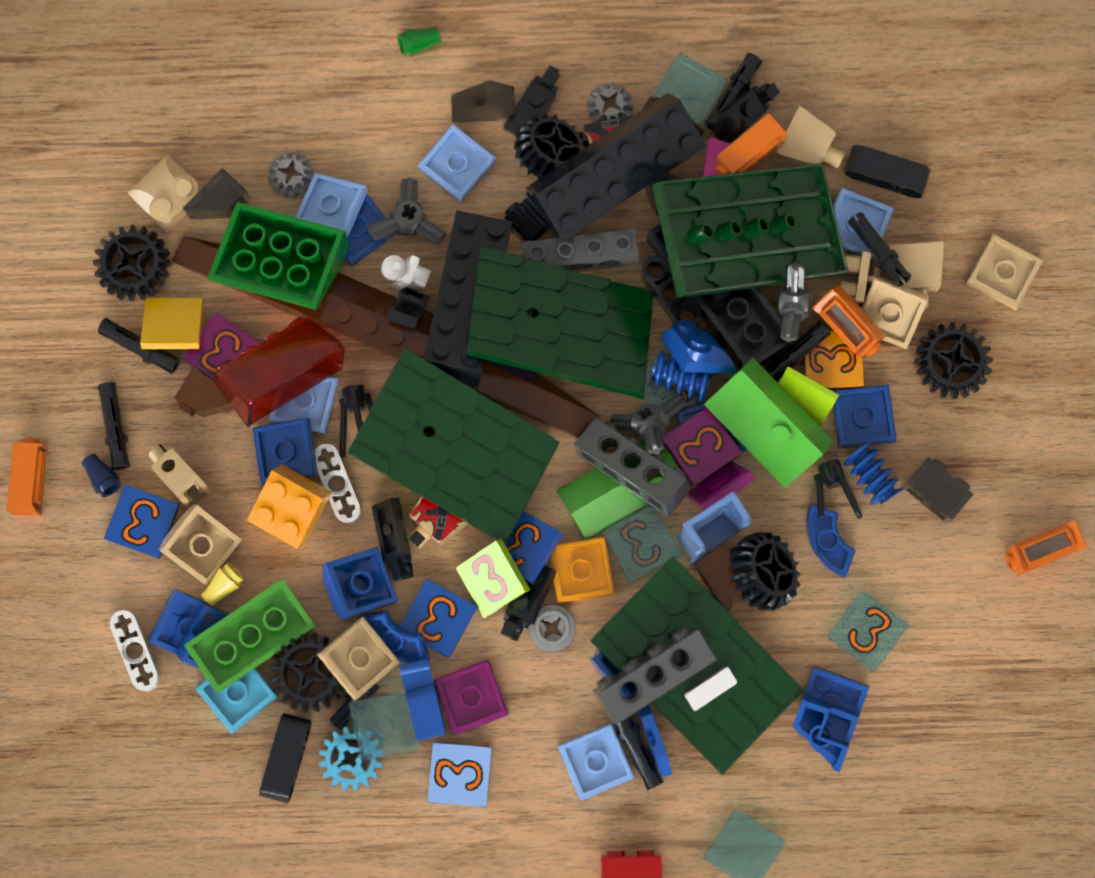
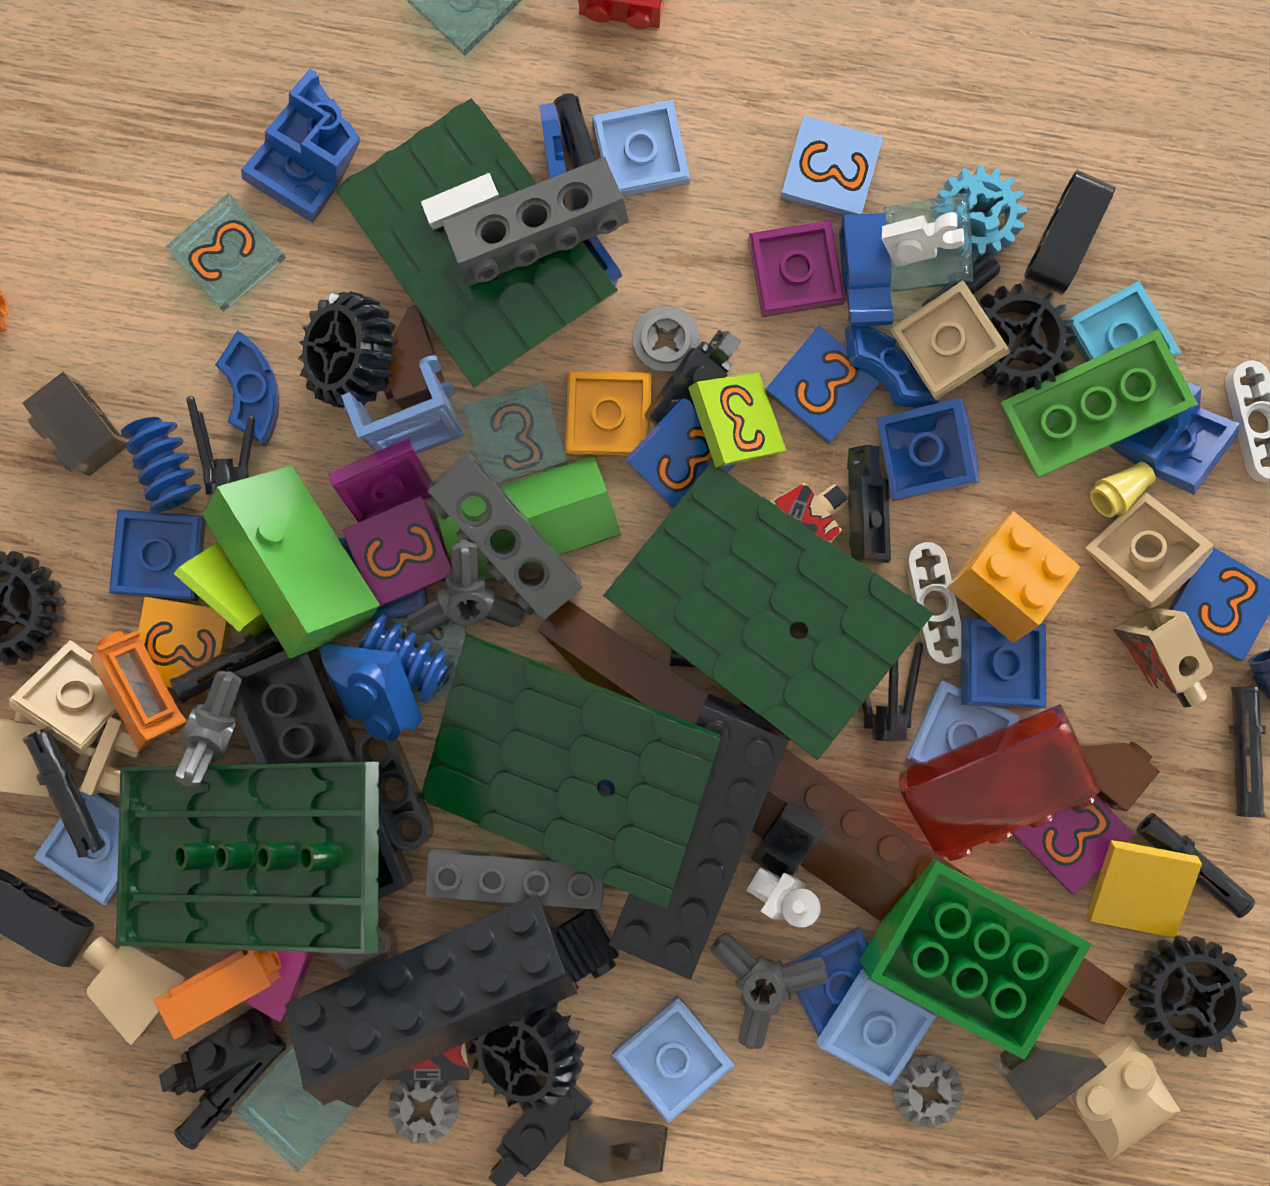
camera: 170 degrees left, 5 degrees up
(394, 719) = (917, 240): none -> white plate

